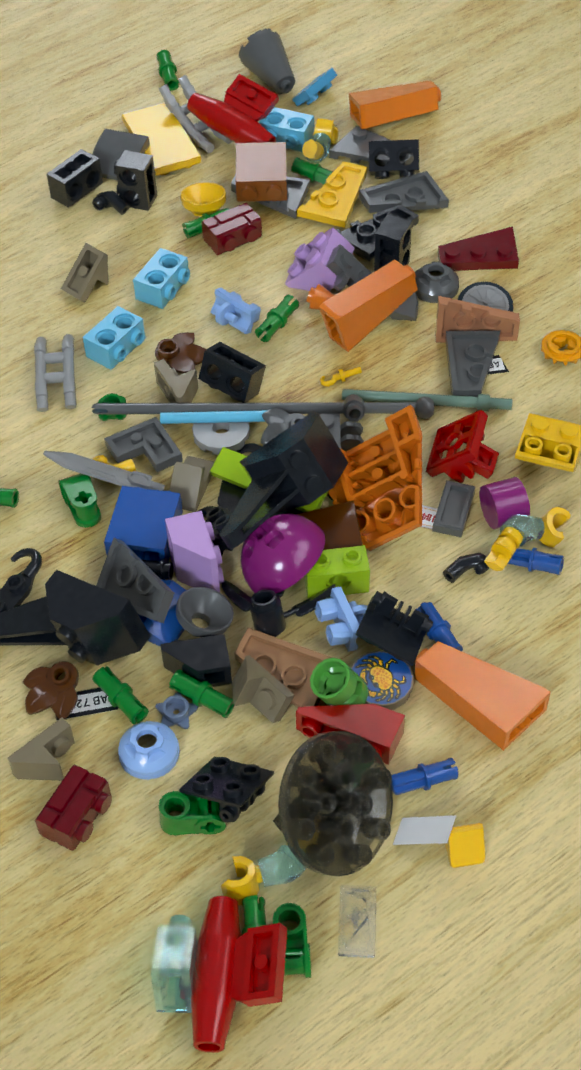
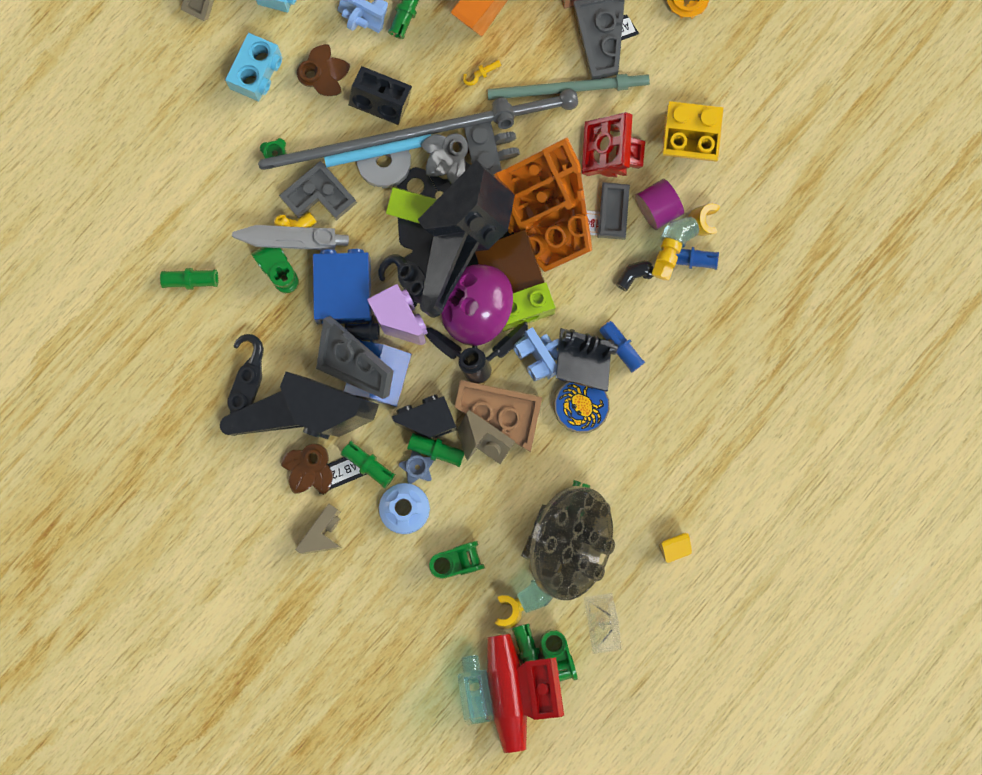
camera: 10 degrees left, 30 degrees up
(66, 376) = (220, 125): light grey piece -> none
(74, 807) = (360, 577): dark red brick -> none
(174, 386) = (334, 122): dark tan slope -> none
(191, 481) = (371, 226): dark tan slope -> none
(207, 605) = (428, 365): dark grey piece -> none
(229, 784) = (478, 536): black hinge -> none
(338, 683) = (551, 429): bright green wheel -> none
(370, 721) = (577, 458): red slope -> none
(424, 776) = (633, 492): blue axle -> none
(424, 830) = (642, 542): white sticker -> none
(481, 693) = (667, 405): orange slope -> none

